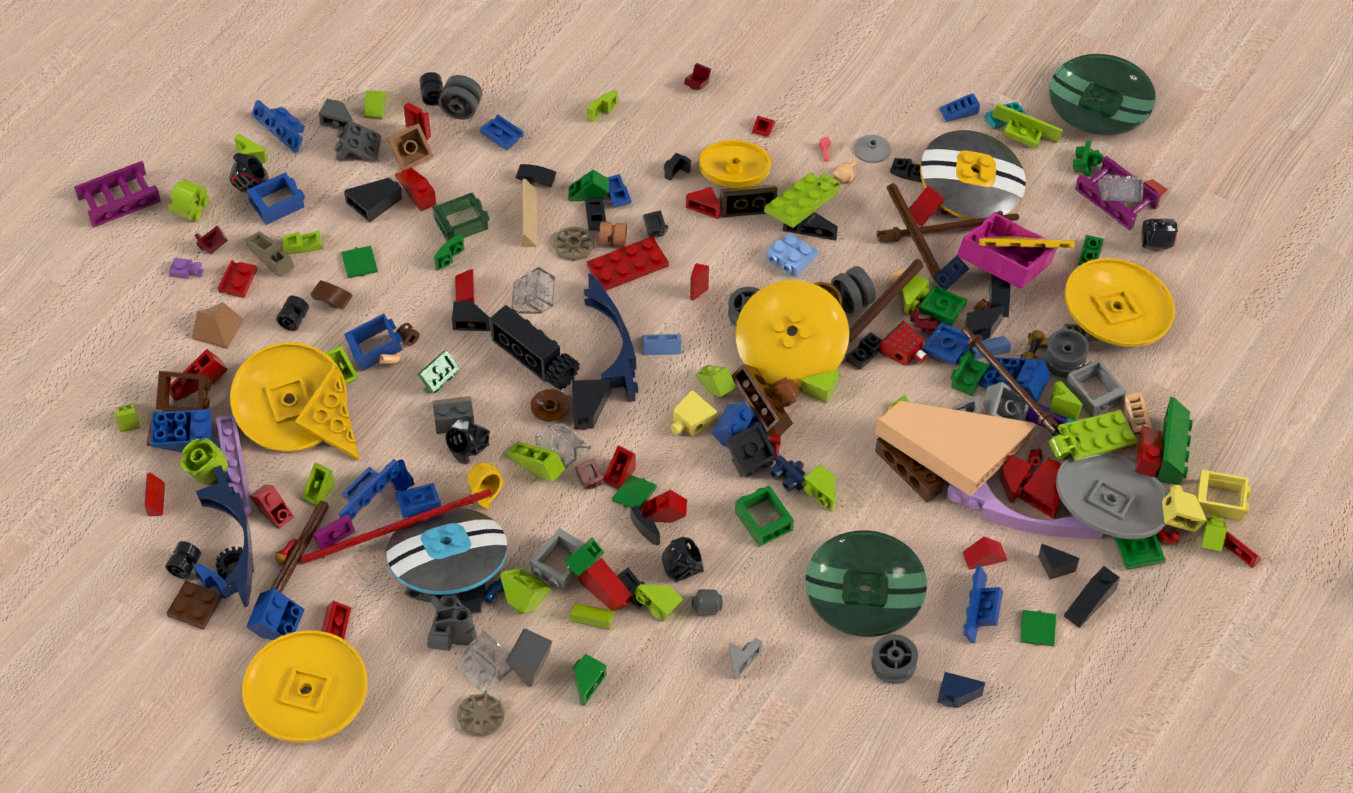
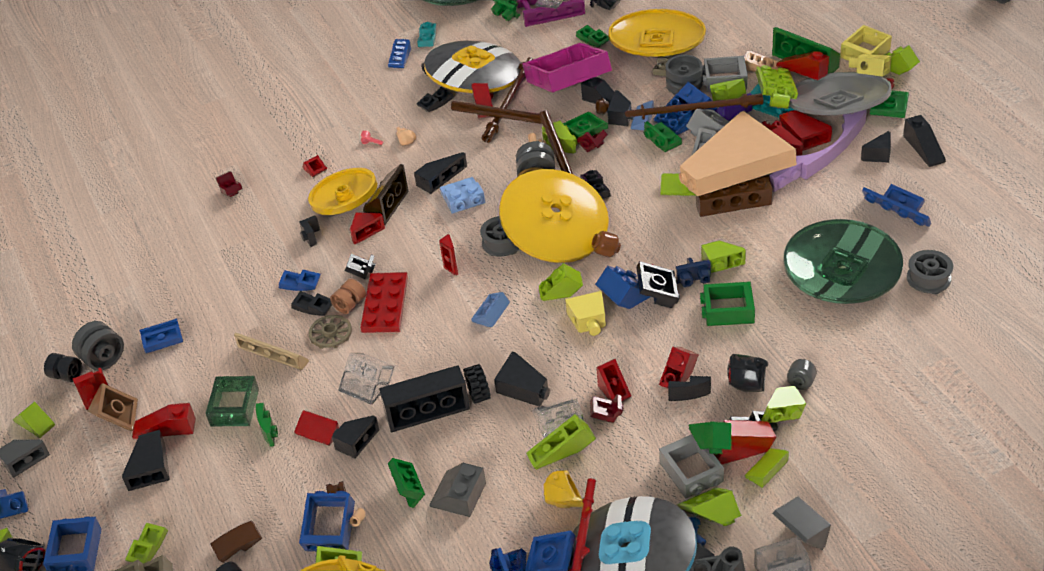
camera: 55 degrees left, 10 degrees down
(358, 141) = (62, 451): dark grey bracket -> none
(359, 261) = (211, 505): green piece -> none
(472, 436) = (503, 486): black piece -> none
(536, 173) = (226, 330): black slope -> none
(549, 399) = (505, 410): reddish brown dish -> none
(588, 676) = (842, 494): green slope -> none
(590, 186) = (280, 296): green slope -> none
(603, 104) = (199, 255): lime slope -> none
(623, 369) = (492, 335): dark blue slope -> none
(634, 492) = (645, 385): green piece -> none
(743, 658) = (875, 371): light grey slope -> none
(761, 399) = (601, 258): reddish brown brick -> none
(803, 198) = (419, 161): lime hinge -> none
(820, 385) = (616, 219): lime slope -> none
(872, 148) = (393, 115): light grey dish -> none
(903, 345) = (608, 159): red torso -> none
(946, 344) = (626, 135): blue plate -> none
(951, 273) = (559, 107): dark blue hips -> none
(959, 690) = (978, 246): dark blue slope -> none
(984, 553) = (846, 188): red slope -> none
(1024, 127) = (450, 25): lime bracket -> none
(1026, 242) = (569, 52): yellow tile -> none
(1036, 340) = (656, 89): pearl gold piece -> none
(1038, 628) = (934, 183): green piece -> none
(1241, 550) = (926, 52): red slope -> none

